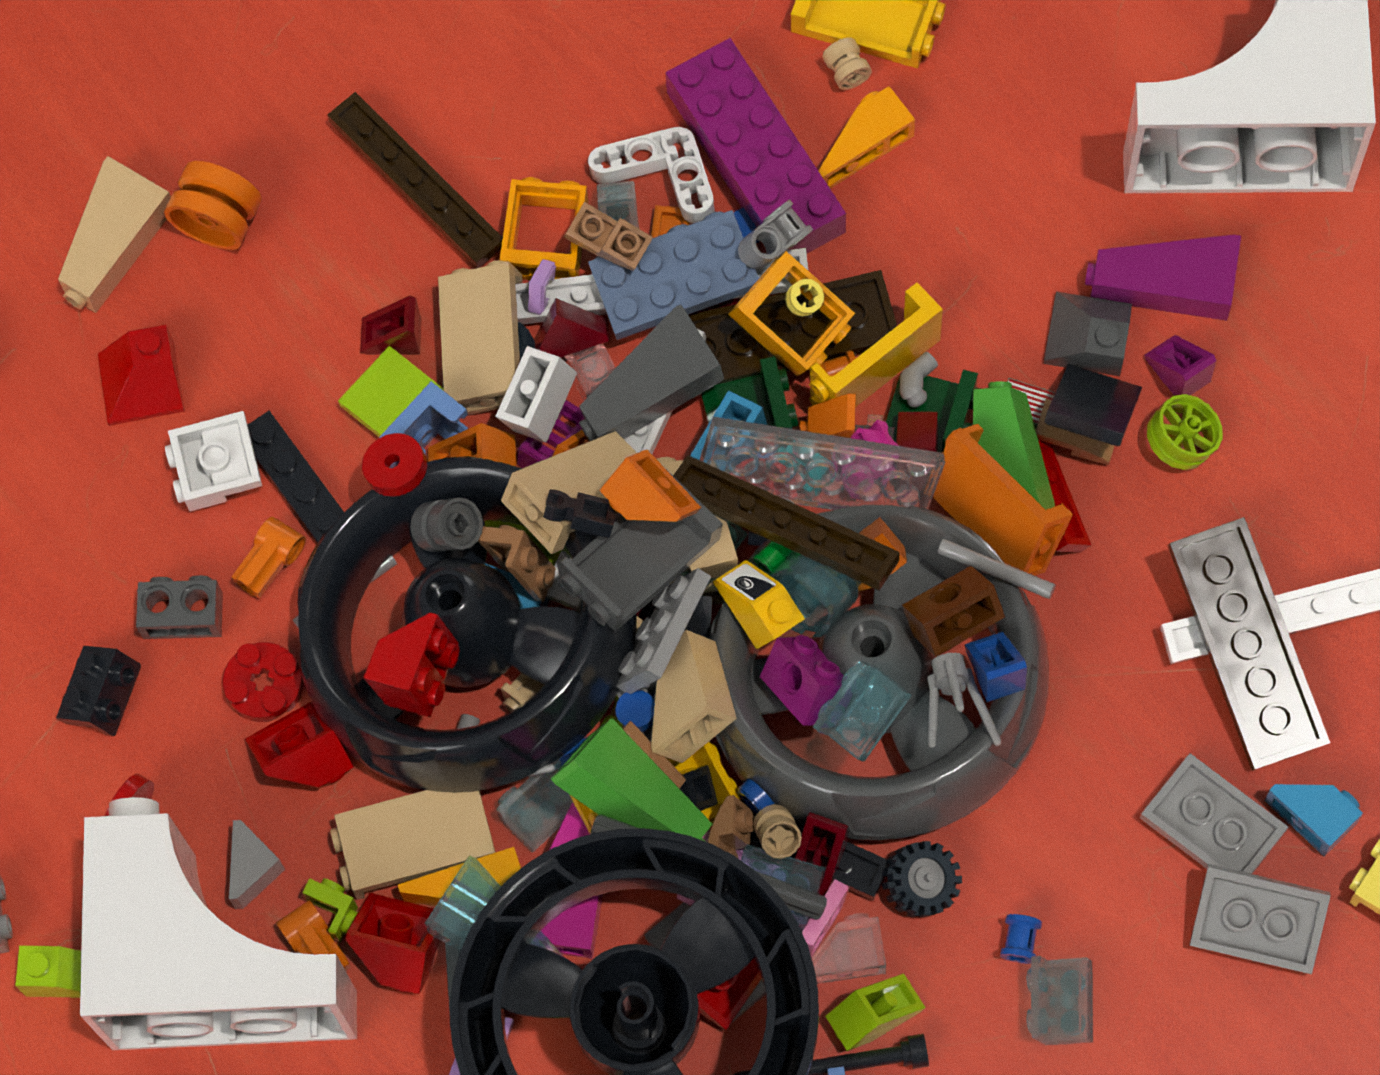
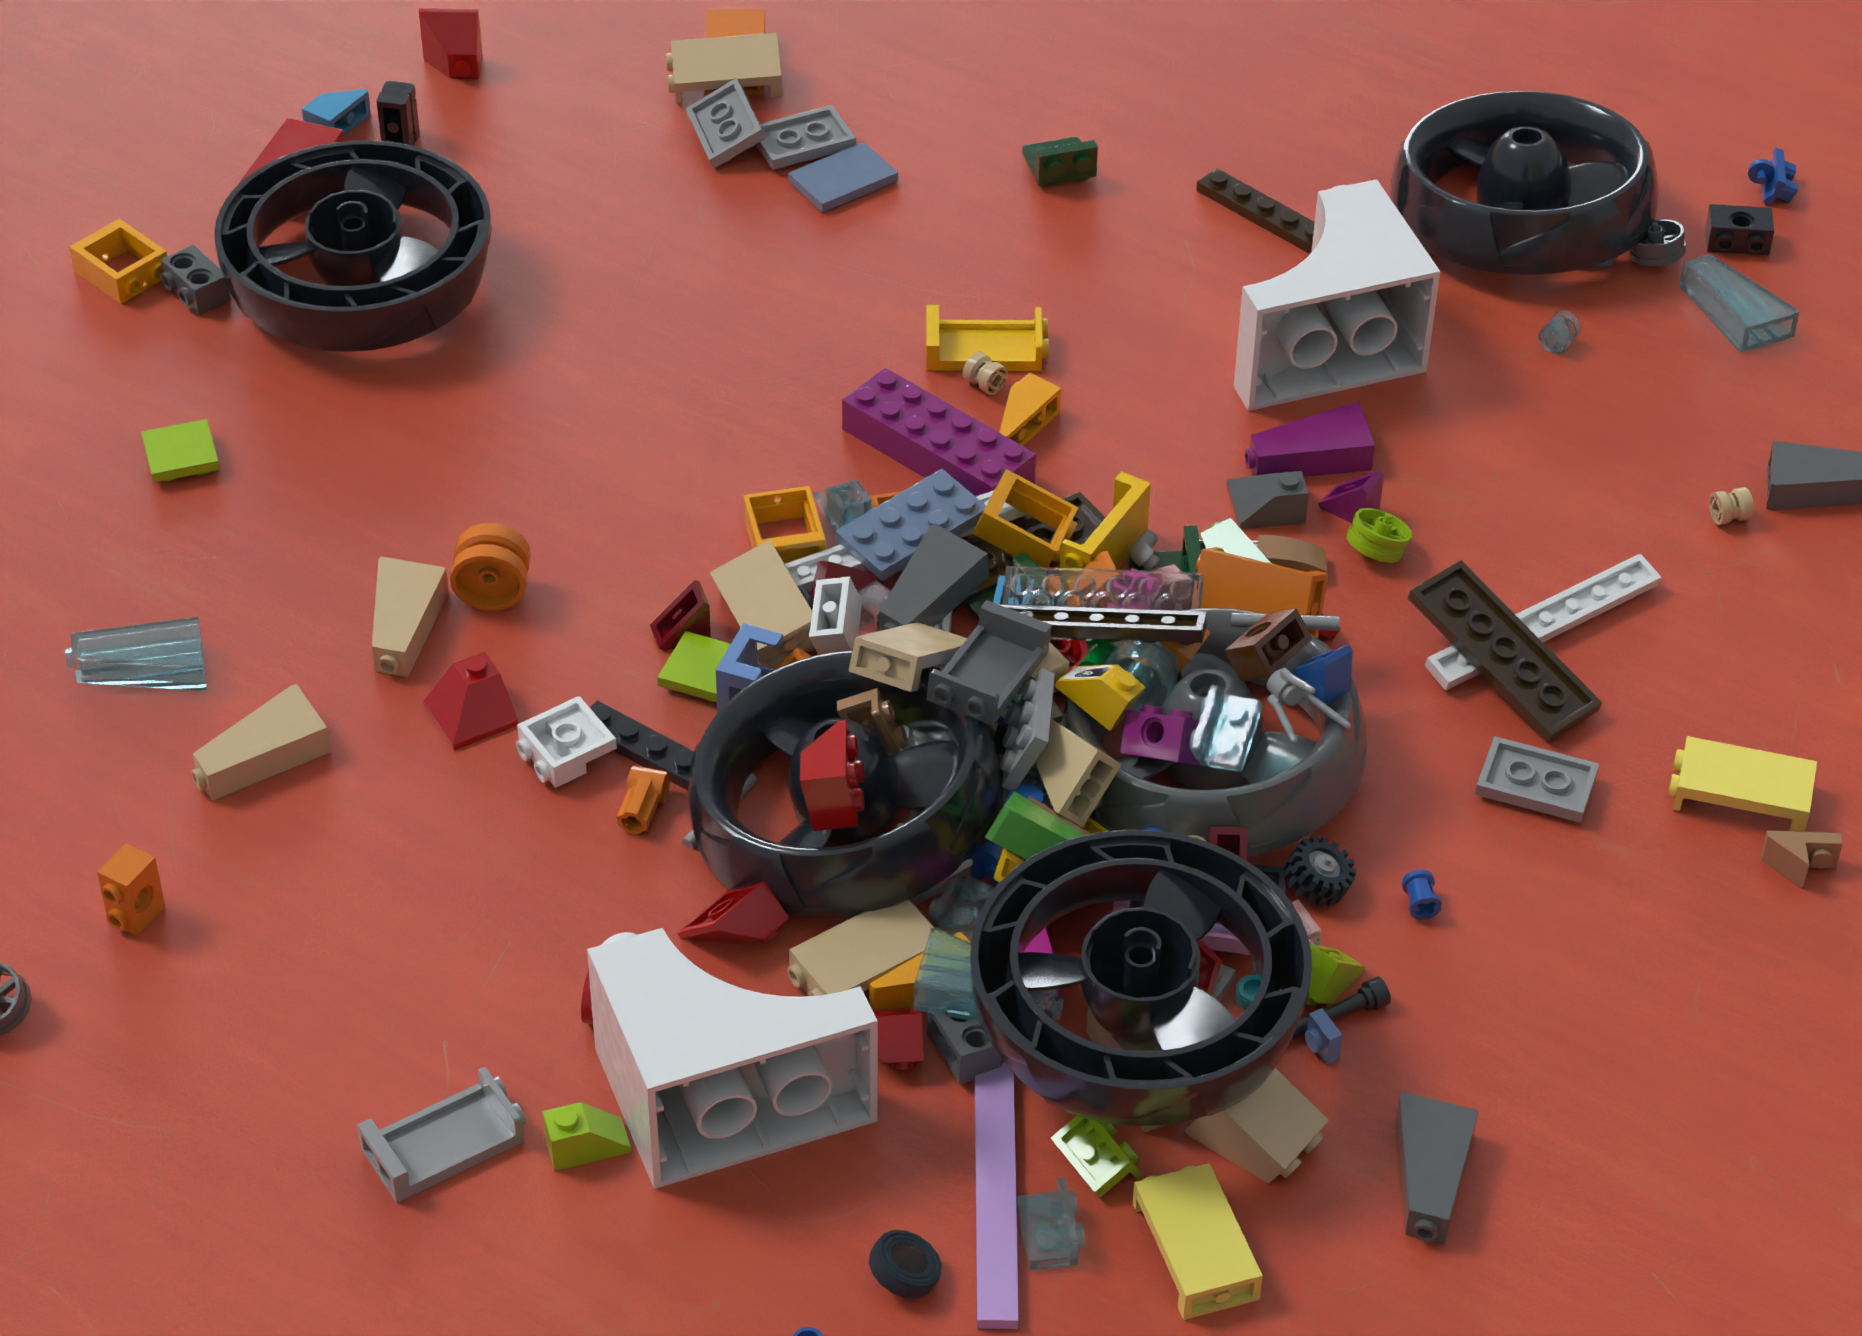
camera: 25 degrees left, 25 degrees down
(99, 689) = (528, 925): black bracket -> none
(177, 618) = (579, 851): dark grey brick -> none
(251, 662) = (675, 870): red plate -> none
(386, 451) = (740, 678): red piece -> none
(416, 180) = (654, 521): dark brown plate -> none
(446, 525) = (804, 707): dark grey wheel -> none
(537, 286) = (802, 558): lavender tile -> none
(586, 512) = (936, 646): black plate -> none
(608, 238) = (858, 506): medium nougat slope -> none
(647, 491) = (979, 613): orange slope -> none
(663, 157) = (863, 458): white beam -> none
(777, 232) = (986, 471): light grey piece -> none
(794, 291) = (1037, 490): light yellow bush -> none
(1060, 1000) = (1480, 925): clear light blue bracket -> none
(1093, 405) = (1300, 528): black tile -> none
(1260, 919) = (1610, 826): light grey plate -> none
(1316, 812) = (1618, 749): dark azure slope -> none

